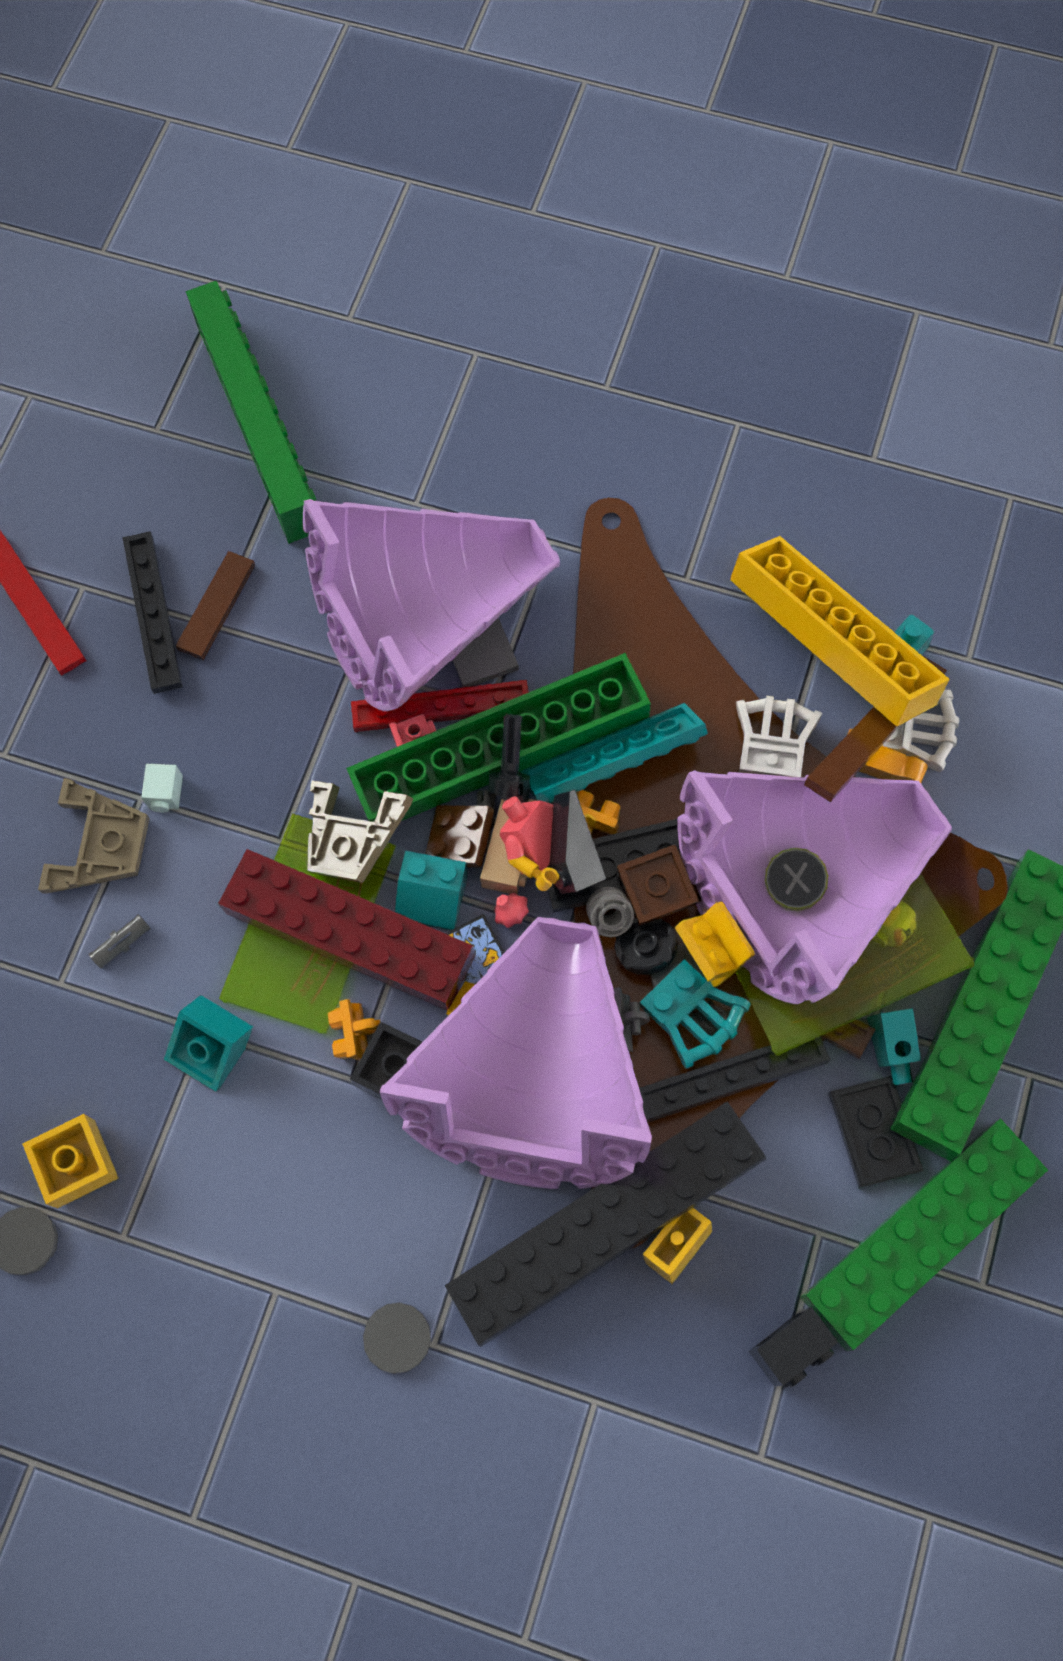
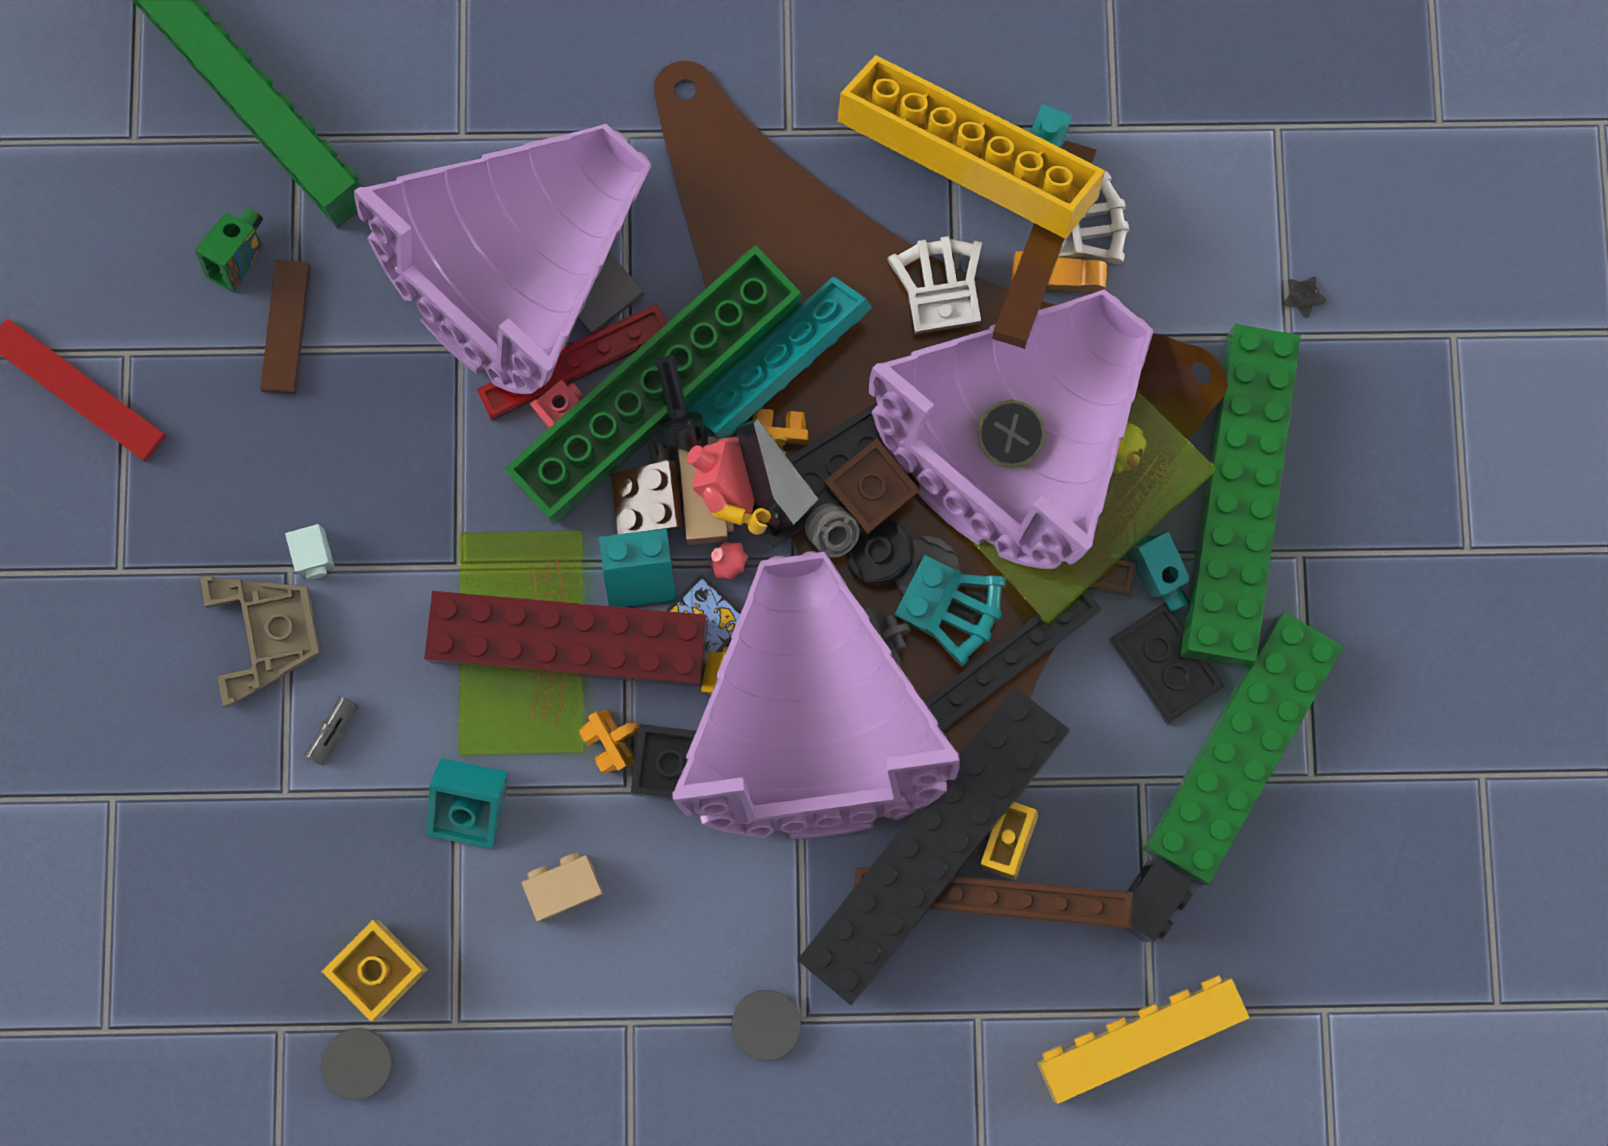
camera: 25 degrees left, 10 degrees up
(152, 612) = (218, 358): black plate -> none
(194, 529) = (230, 248): none -> green torso
(261, 1145) = (561, 887): none -> tan brick
(345, 845) = (532, 551): wing -> none
(683, 1308) = (1034, 901): none -> reddish brown tile
(715, 943) = (952, 530): yellow bracket -> none
(744, 1481) = (1142, 1039): none -> yellow brick

